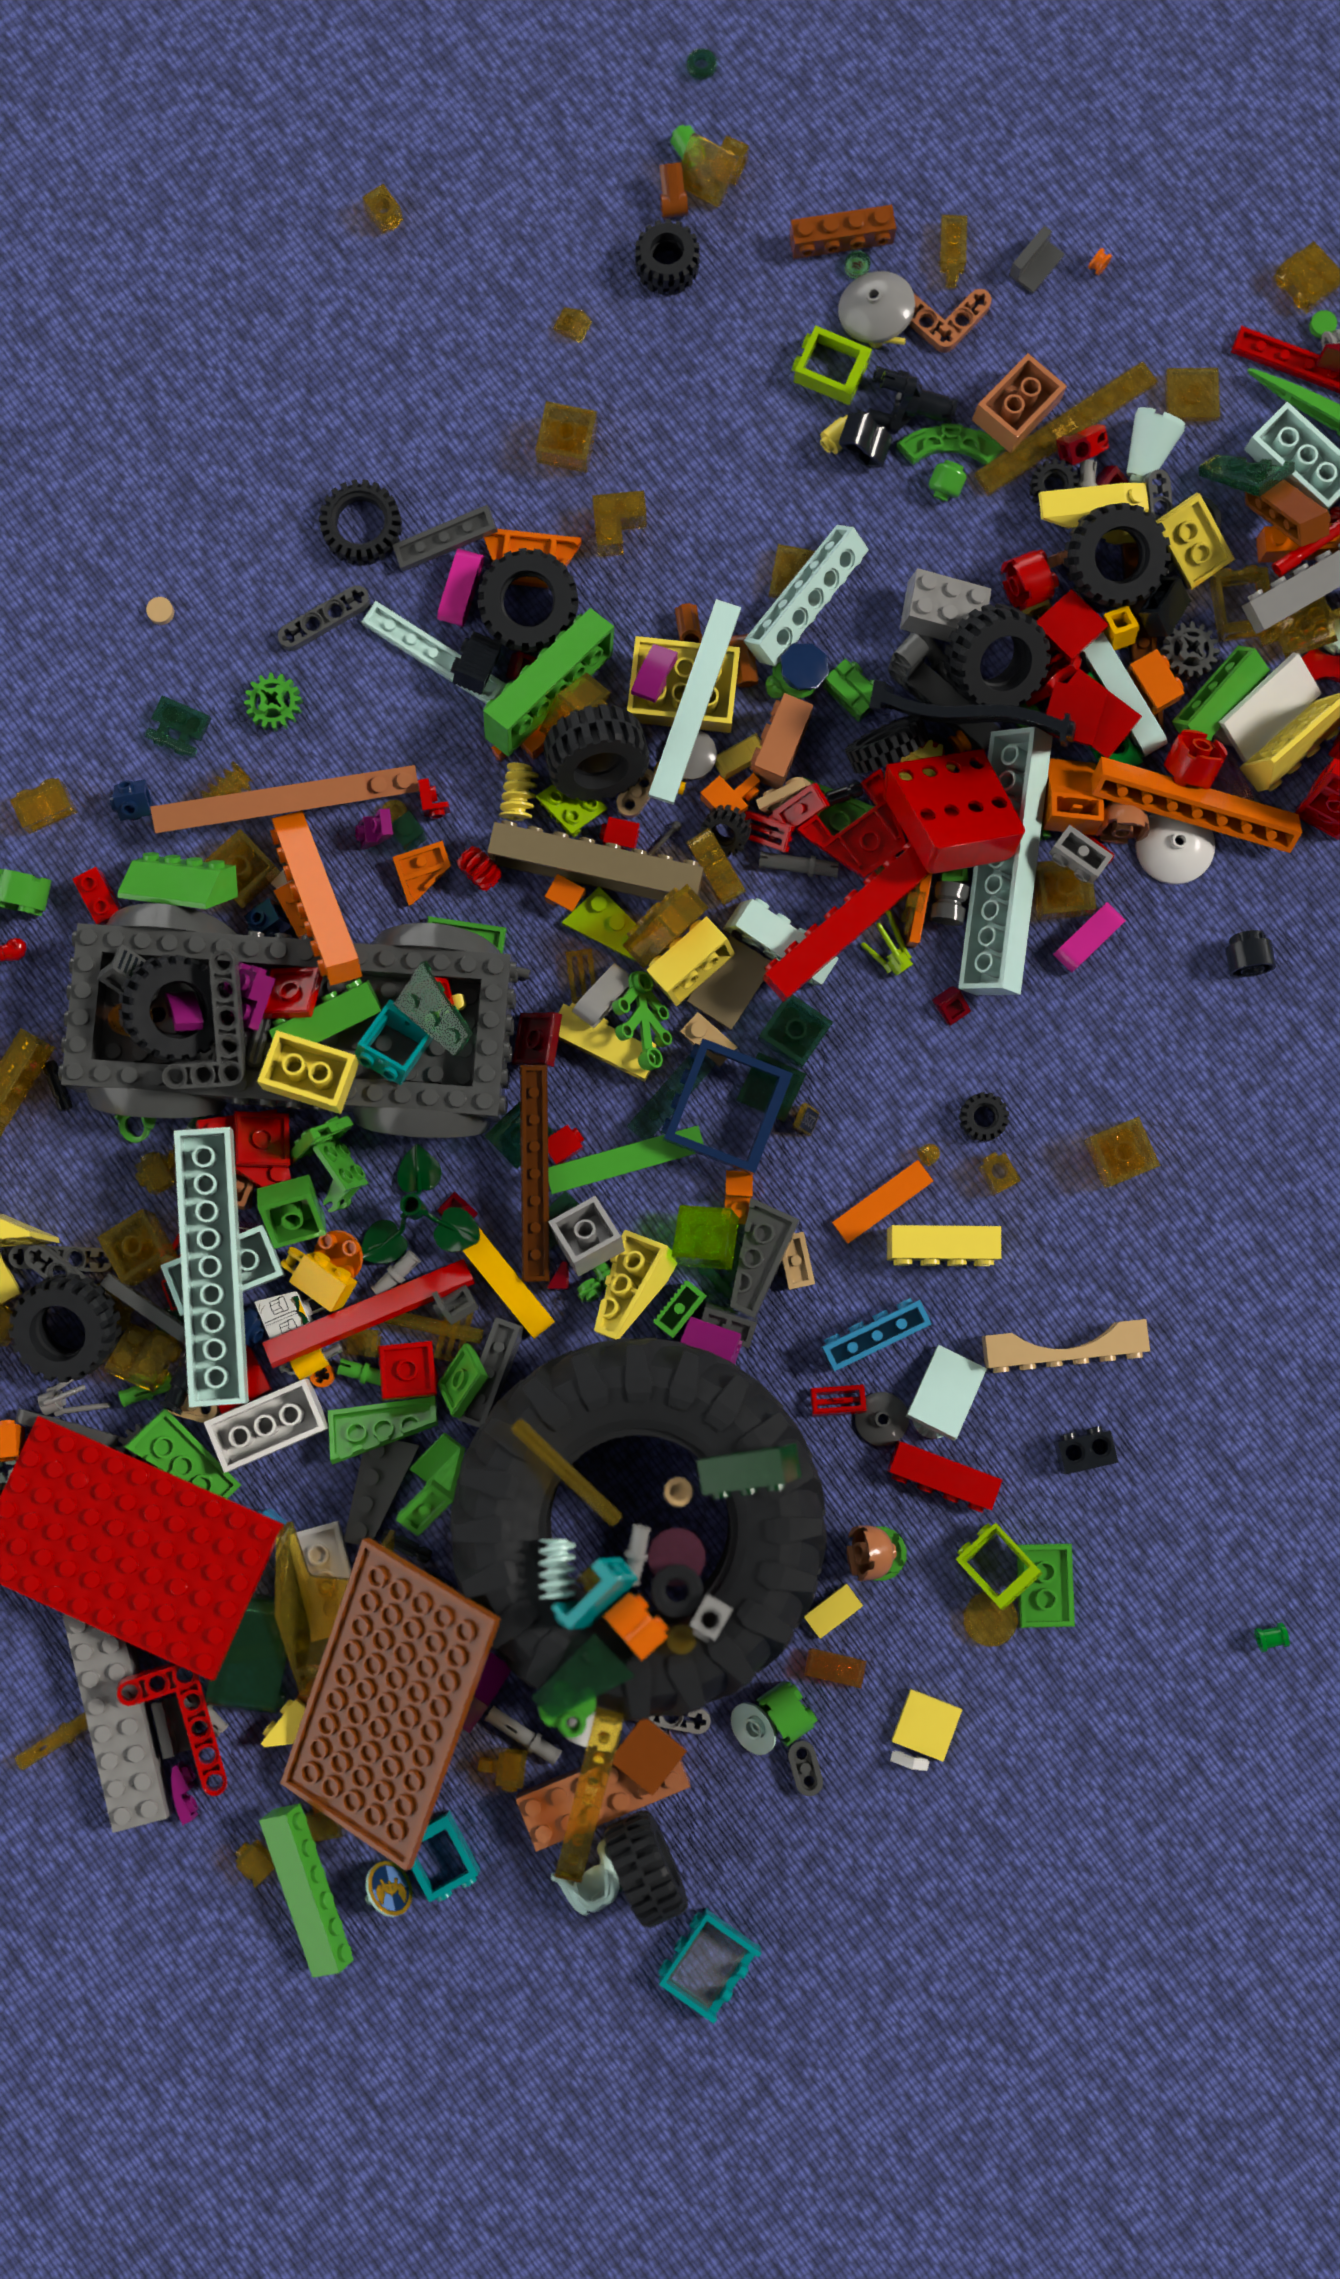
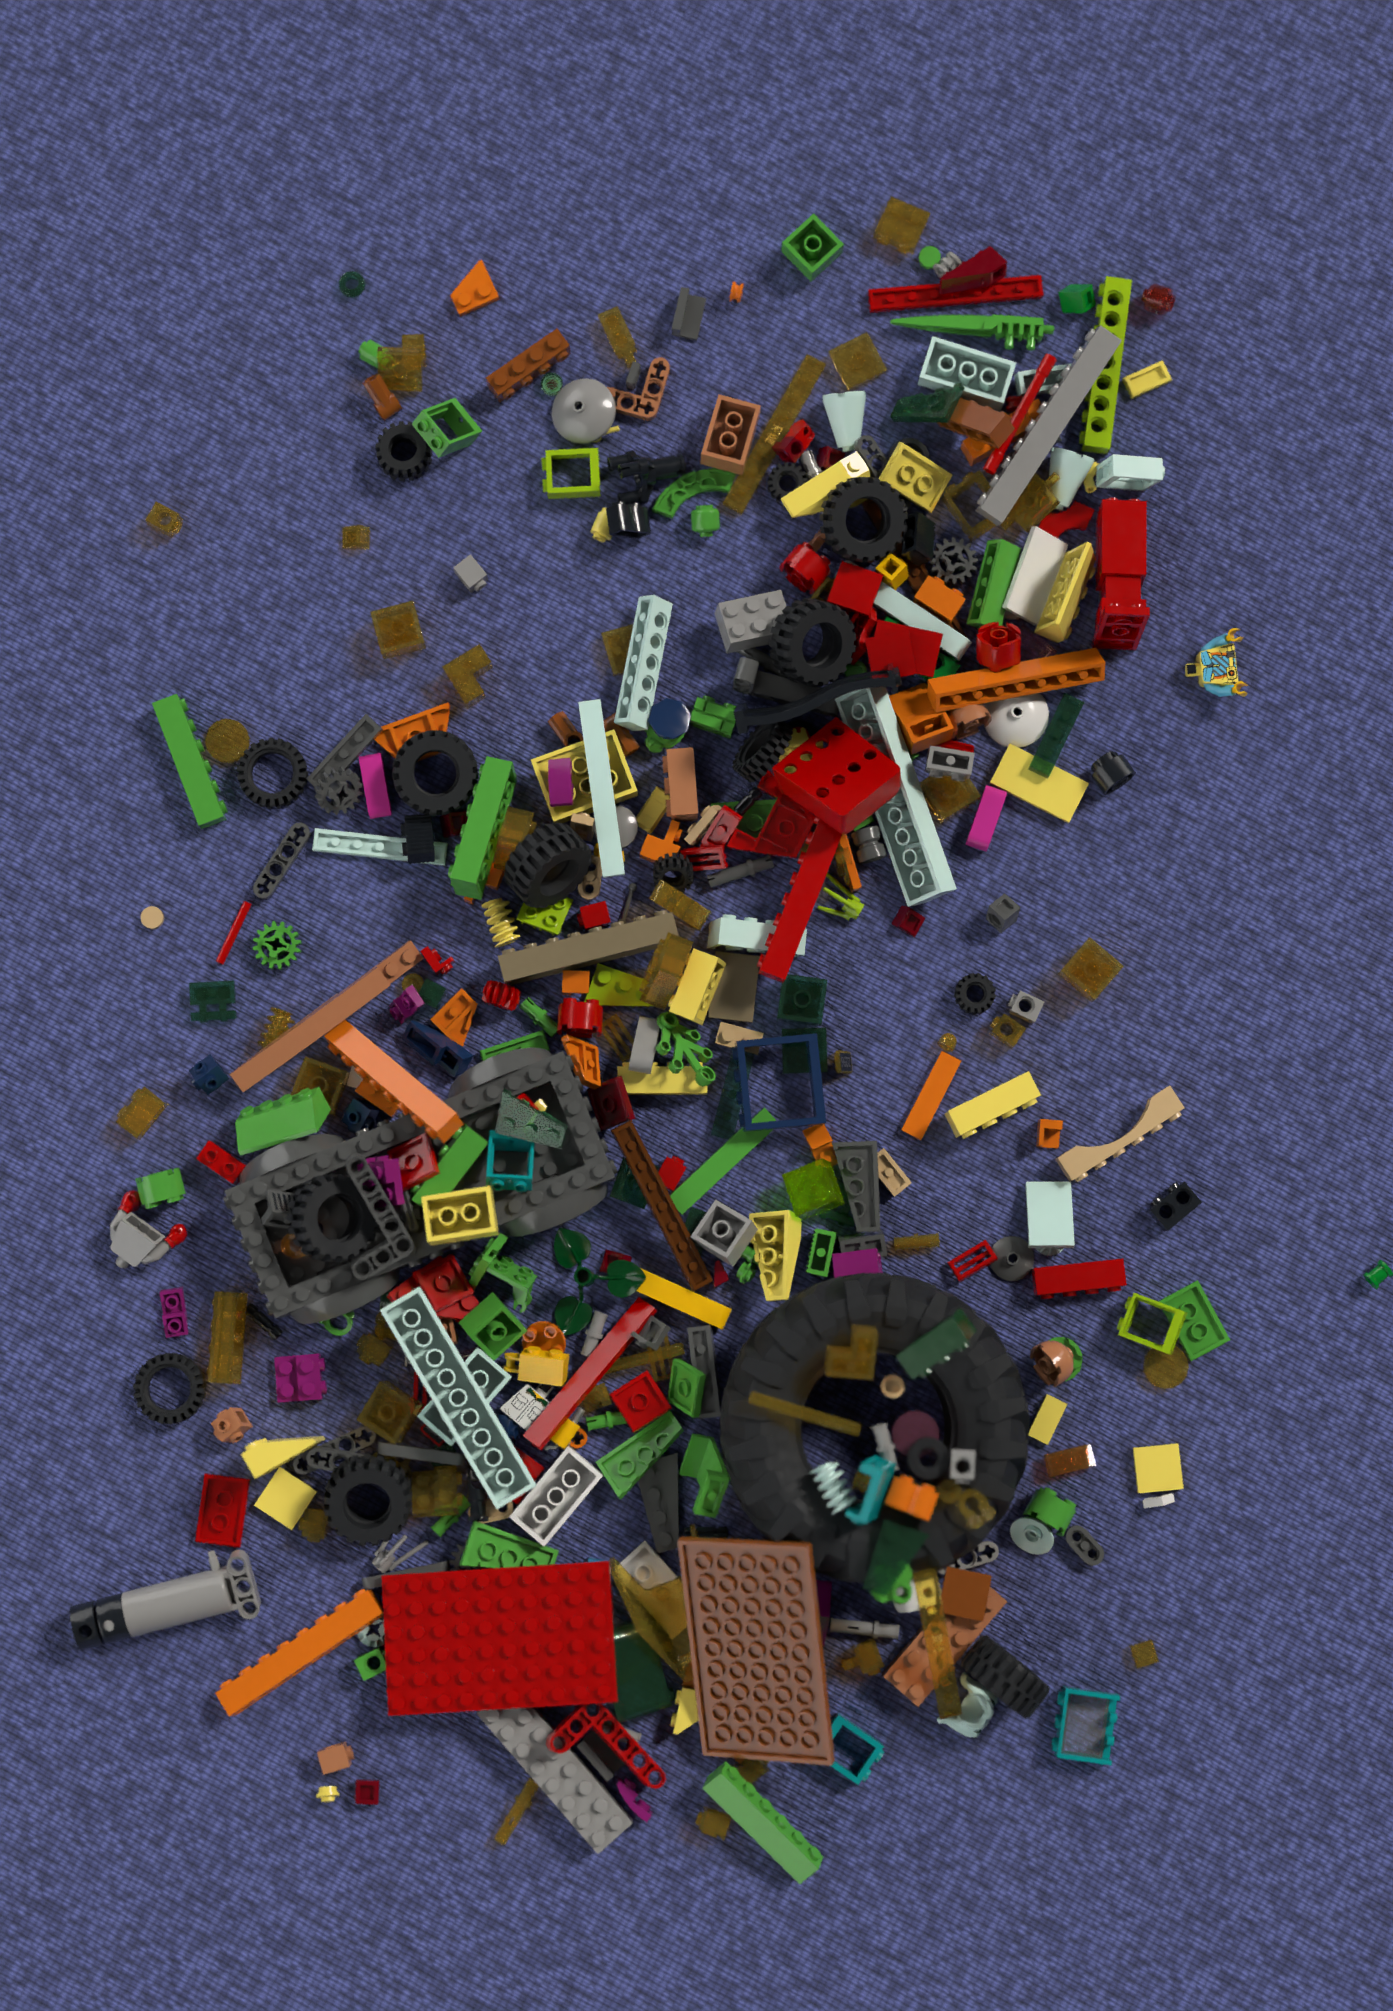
camera: 30 degrees left, 0 degrees up
(64, 1164) = (300, 1378): none -> magenta plate
(184, 1011) = (342, 1216): magenta slope -> none
(236, 667) = (237, 924): none -> red bar
(281, 468) = (189, 761): none -> bright green brick
(331, 465) = (227, 740): none -> clear yellow tile
(384, 890) = (437, 1048): none -> dark blue slope
(388, 1889) = (822, 1791): shield -> none
(414, 561) = (338, 790): none -> dark grey gear
(509, 912) = (539, 1016): none -> bright green pin
(532, 979) = (585, 1060): none -> orange wing
(550, 933) = (580, 1018): none -> red brick
(651, 1442) = (856, 1360): none -> clear yellow brick
(655, 732) = (583, 825): none -> tan plate
(672, 417) = (471, 574): none -> light grey brick
(711, 1682) = (972, 1519): none -> clear yellow piece
(737, 240) = (452, 413): none -> bright green window
(788, 1349) = (916, 1242): none -> clear yellow pin
(811, 1918) = (1144, 1653): none -> clear yellow tile
(825, 131) = (474, 291): none -> orange wing
(876, 1335) = (976, 1198): dark azure brick -> none
(947, 295) = (633, 375): none -> dark grey tile
(960, 742) = (815, 718): orange bush -> none
(988, 1305) = (1048, 1133): none -> orange panel
(1043, 1160) = (1035, 1006): none -> light grey brick
(1057, 1045) = (1002, 913): none -> dark grey brick
(1165, 928) = (1056, 795): none -> light yellow tile
(1204, 251) = (812, 247): none -> bright green brick
(1208, 887) = (1056, 735): none -> clear green tile

